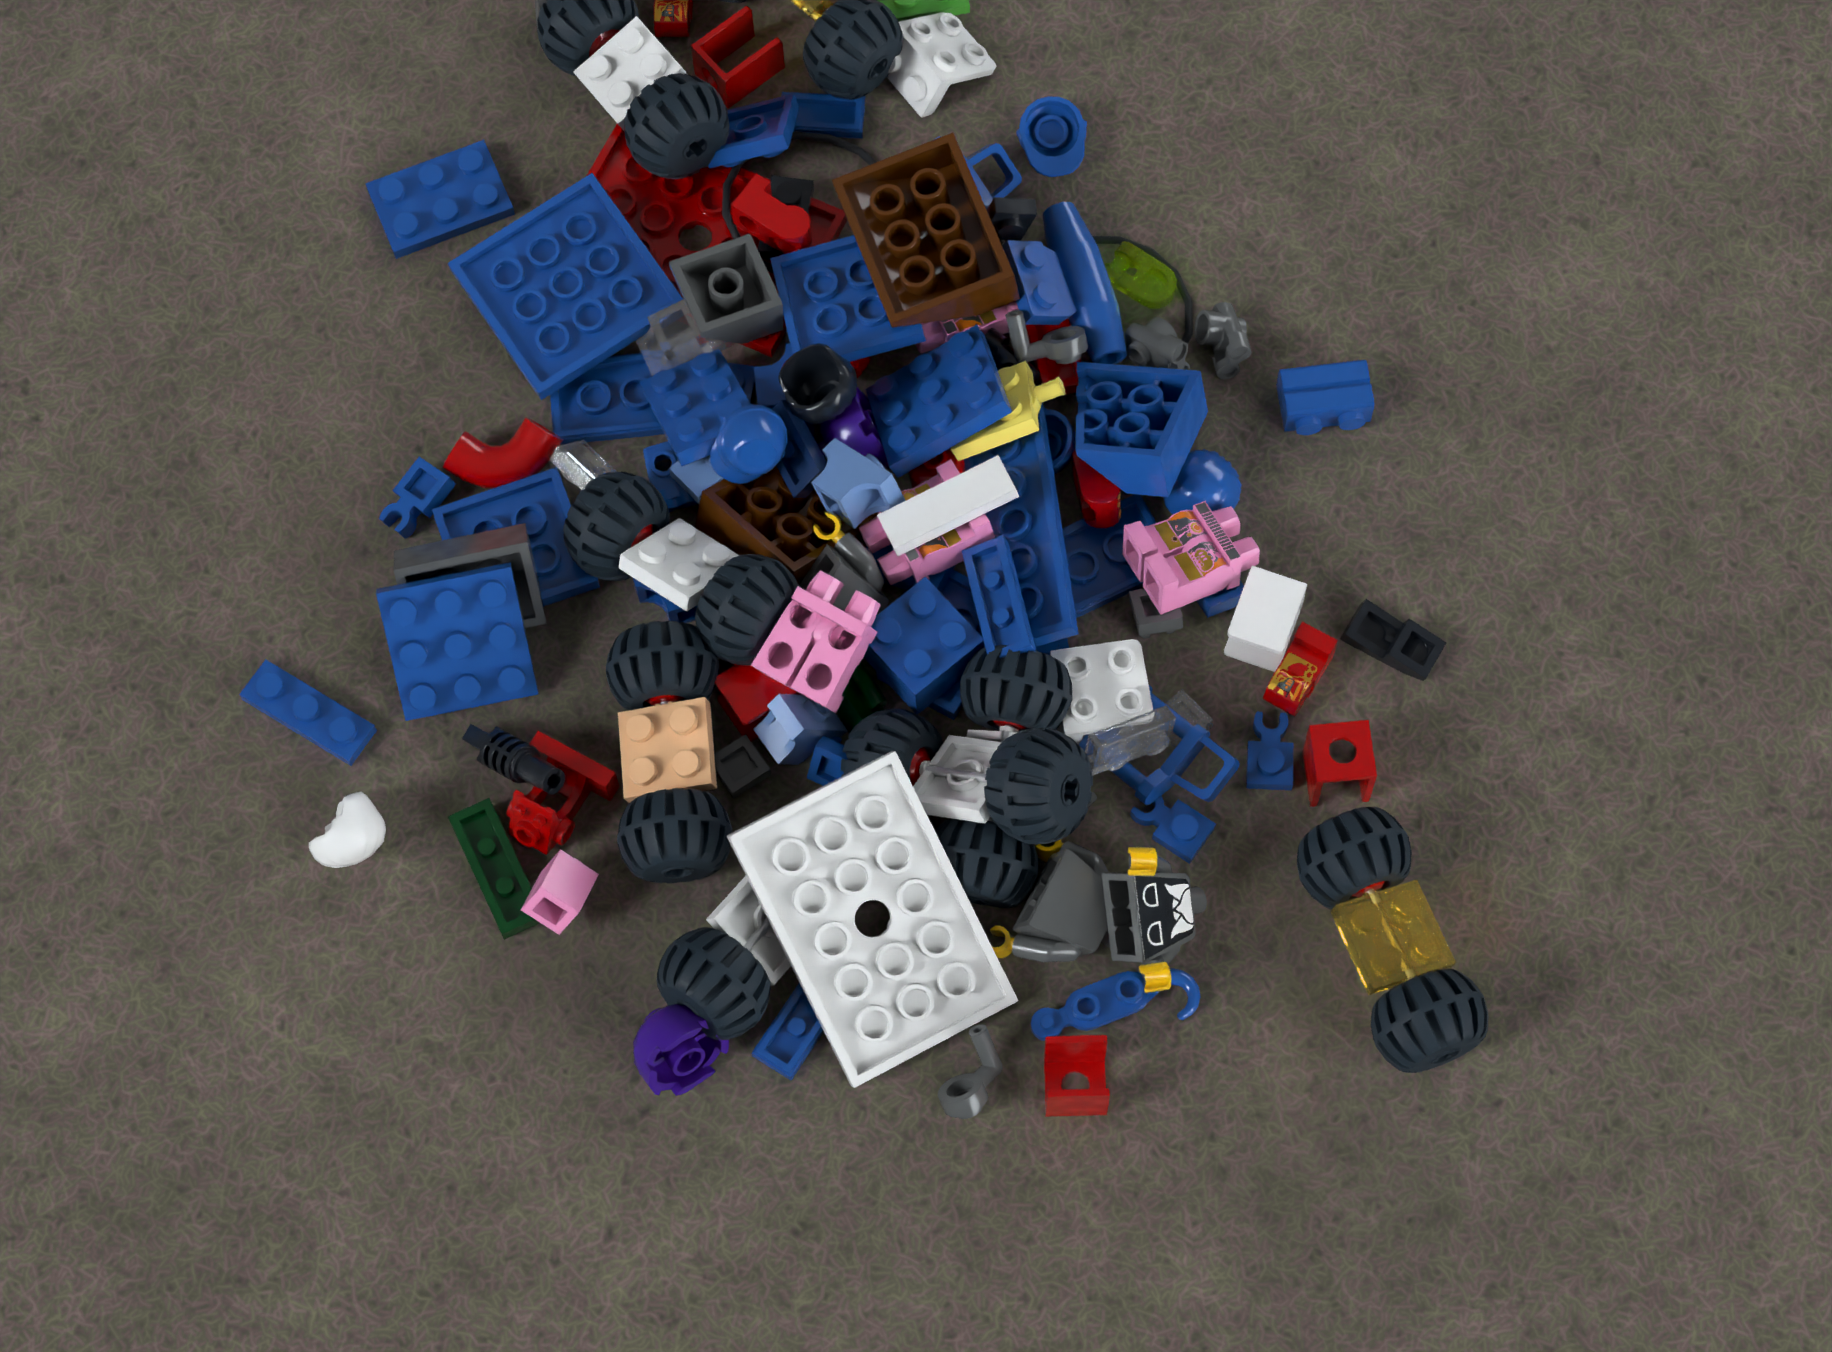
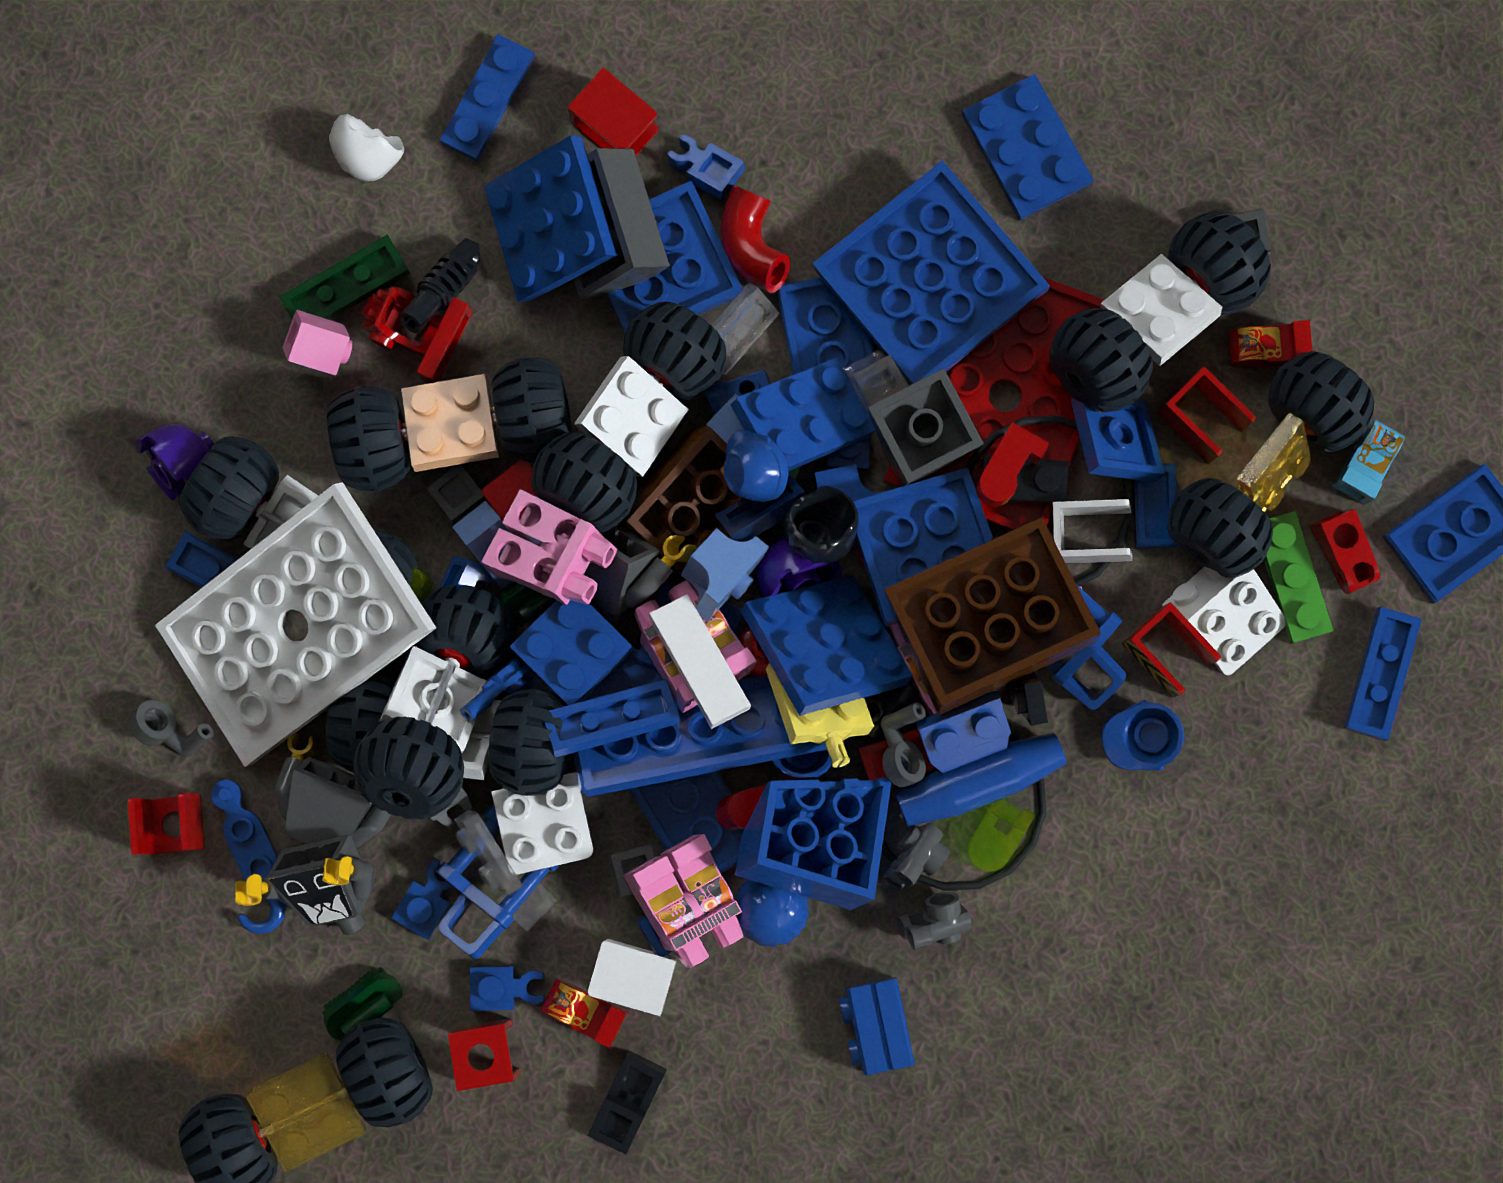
camera: 80 degrees right, 15 degrees up
(348, 577) = (613, 114): none -> red piece
(825, 191) = (1091, 507): none -> white piece
(948, 717) = (507, 679): none -> blue plate
(955, 89) = (1185, 631): none -> red piece
(1281, 898) = (364, 1001): none -> dark green piece

